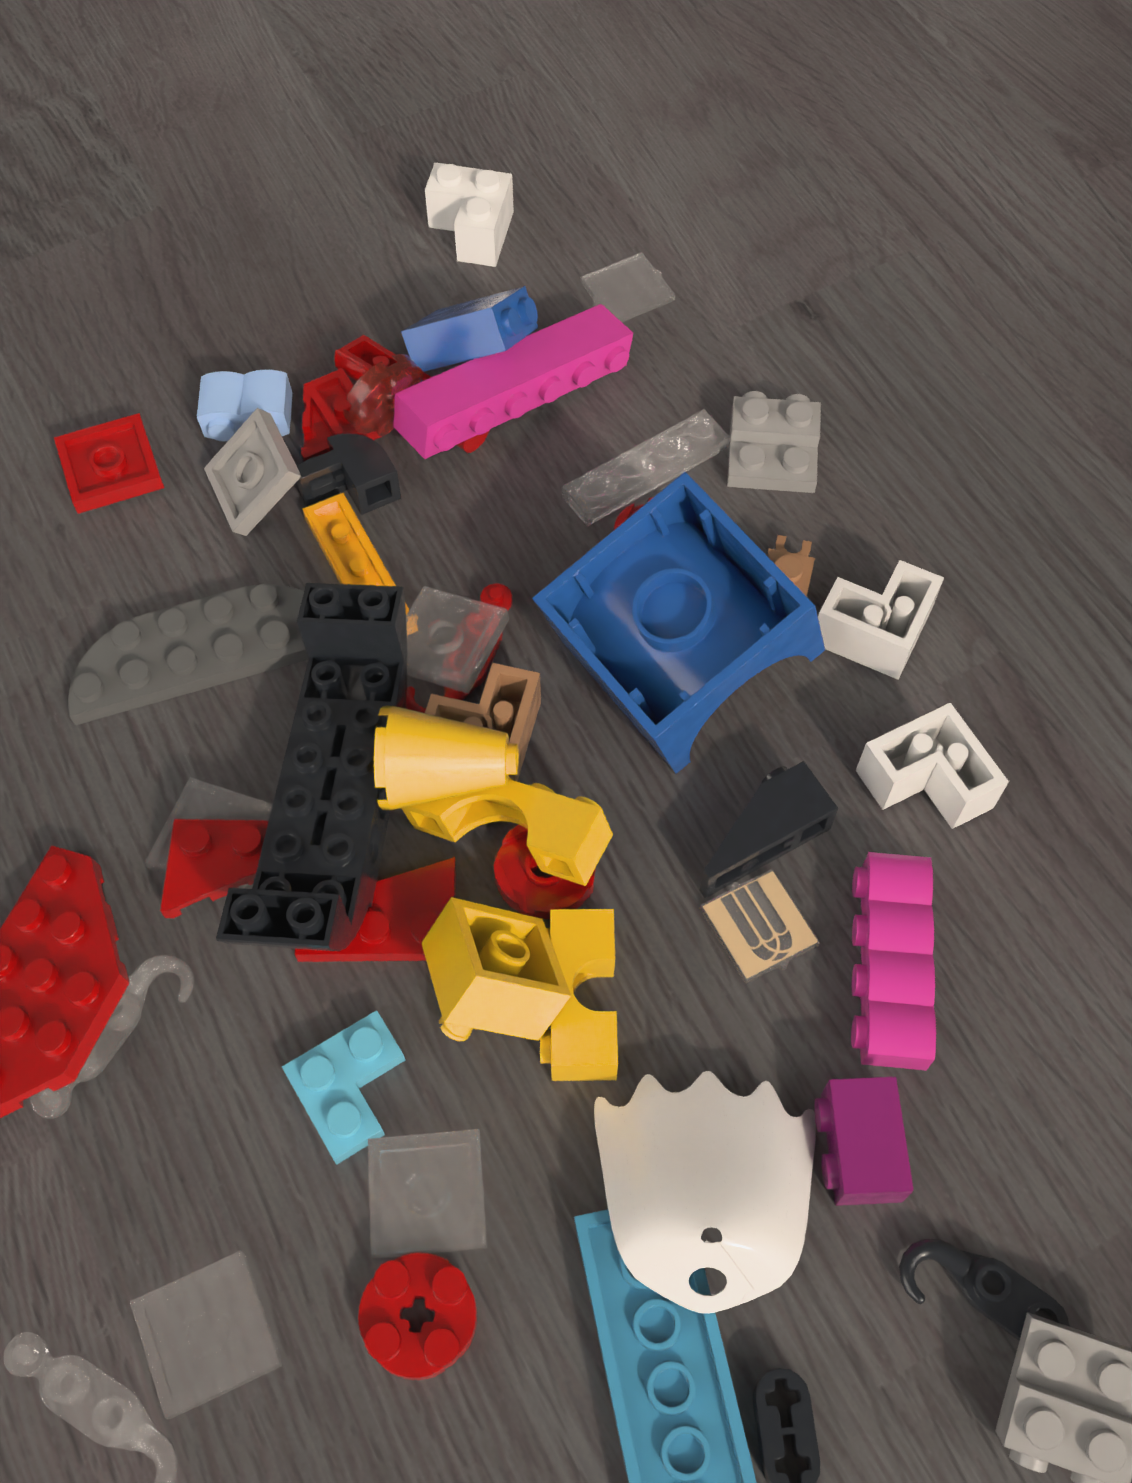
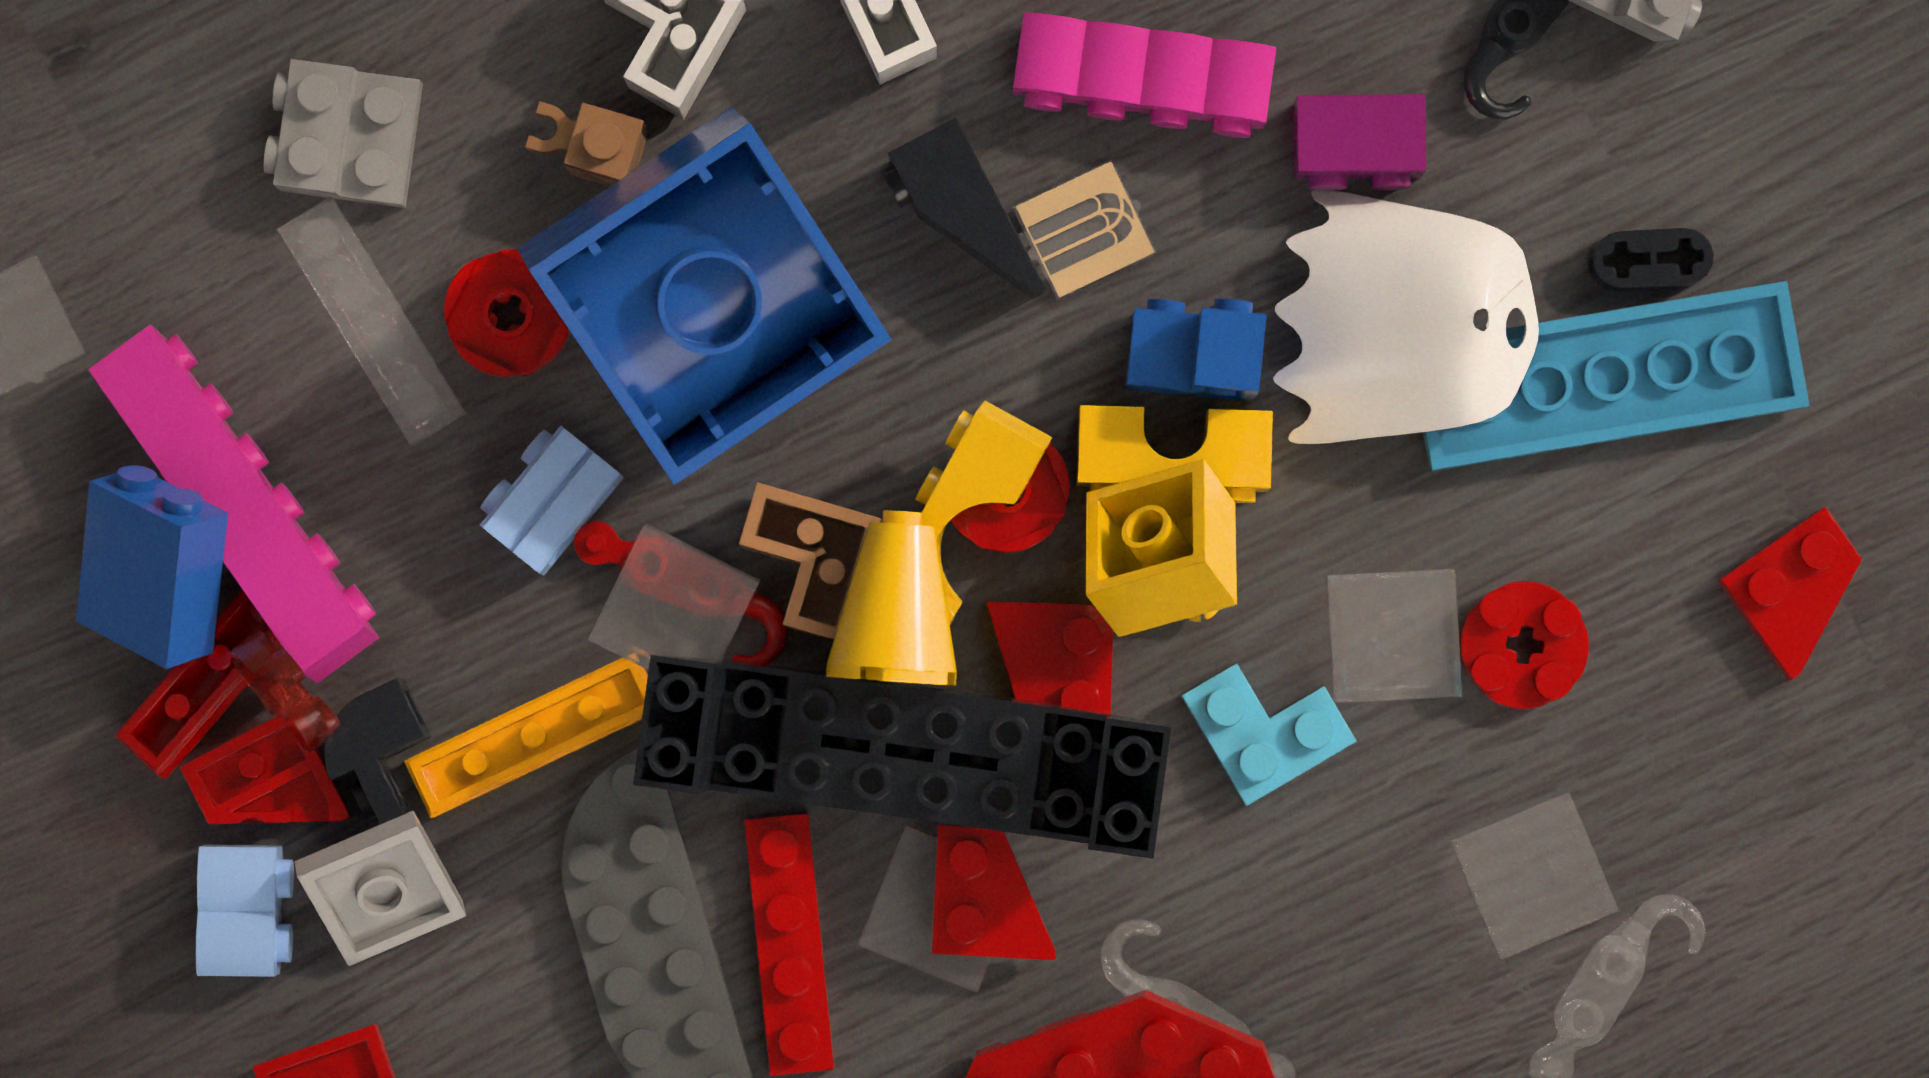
camera: 90 degrees left, 25 degrees up
(193, 734) = (789, 944): none -> red plate
(519, 560) = (549, 498): none -> light blue brick
(666, 1007) = (1197, 354): none -> blue brick

